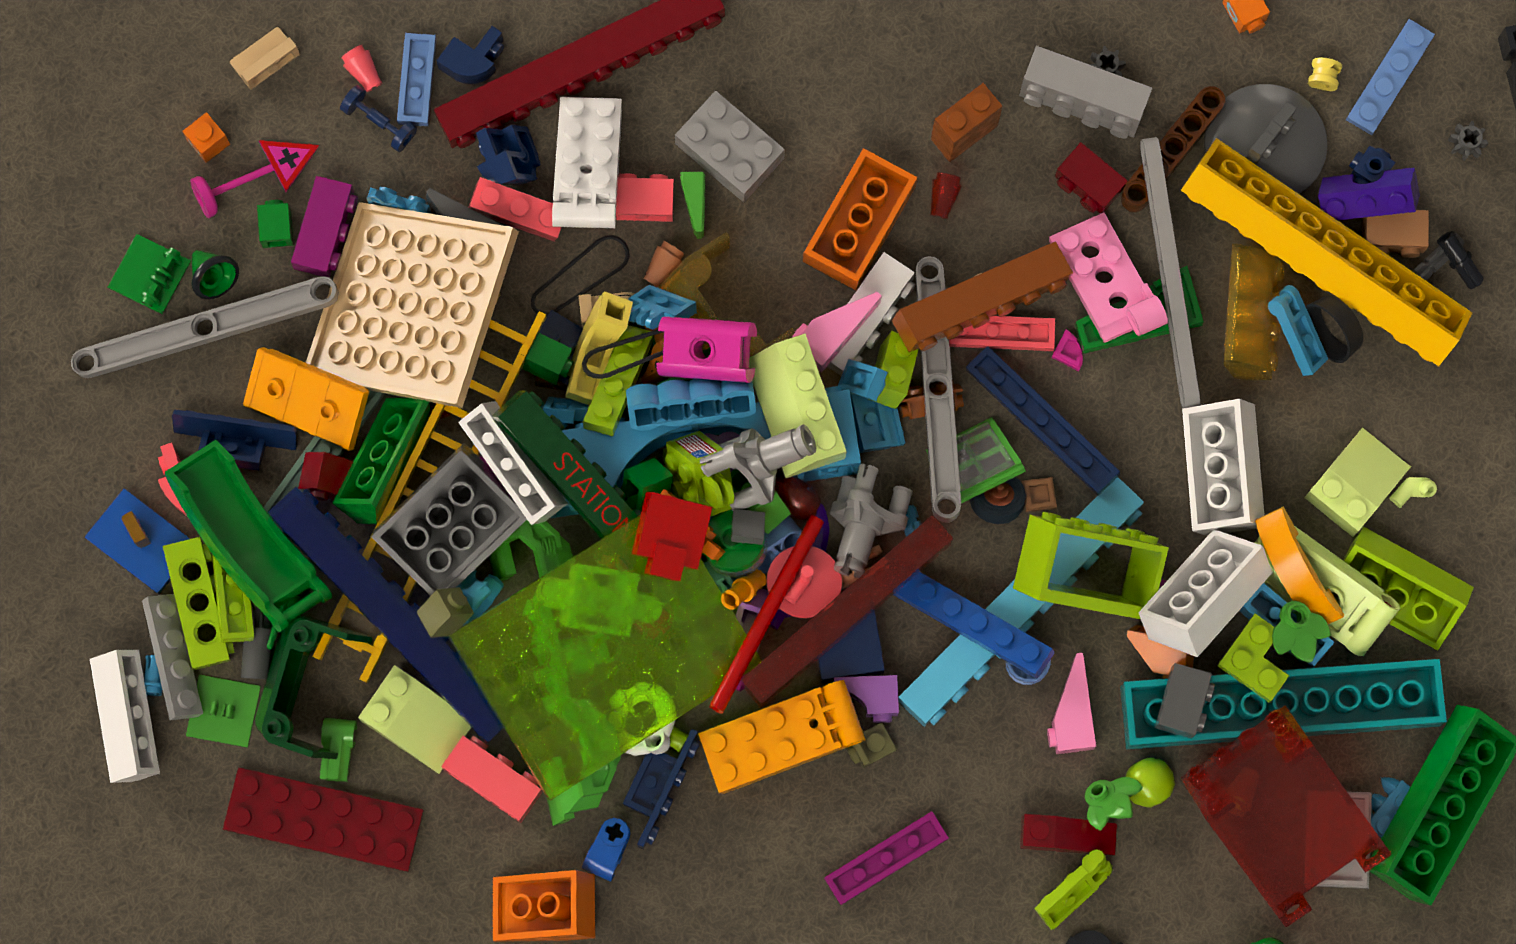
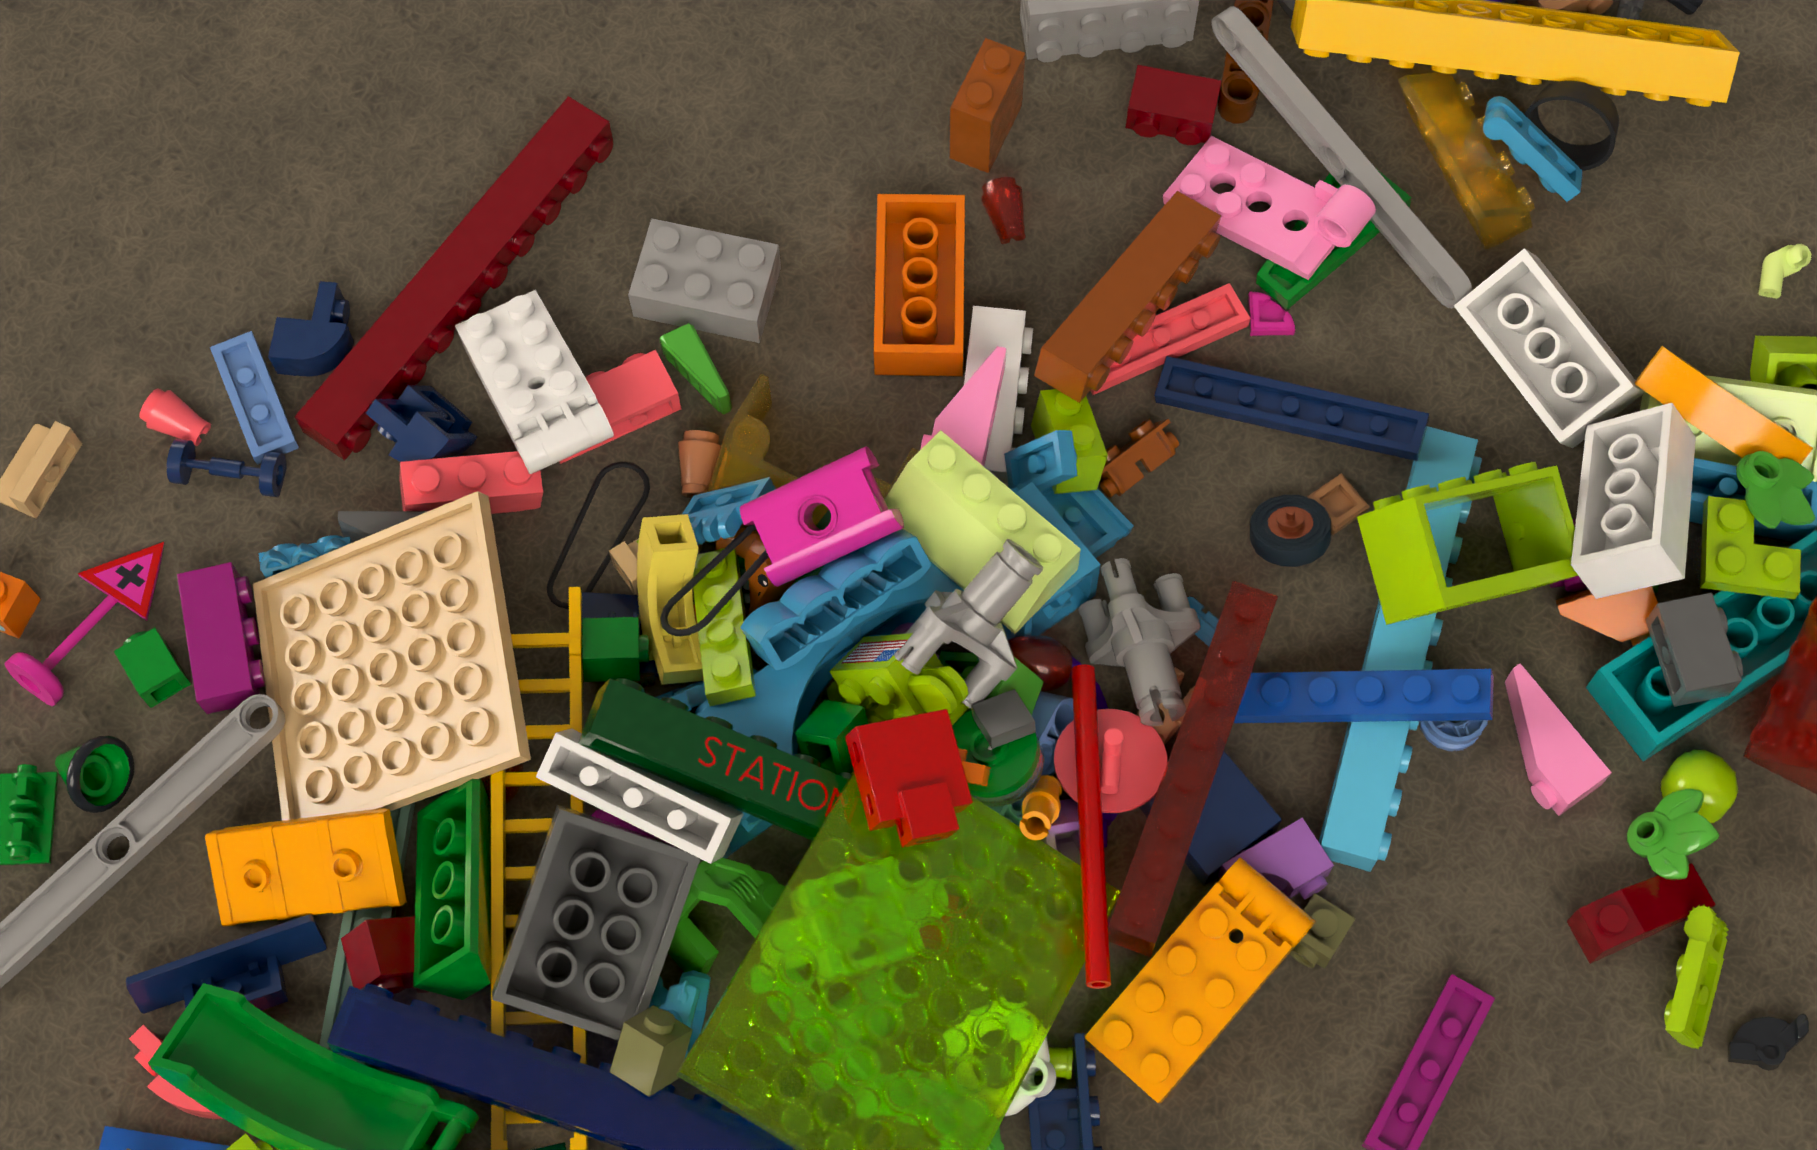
camera: 25 degrees left, 10 degrees down
(939, 408) = (1158, 455): light grey beam -> none
(985, 459) = (1236, 500): clear piece -> none
(1357, 482) = (1712, 295): yellowish green slope -> none

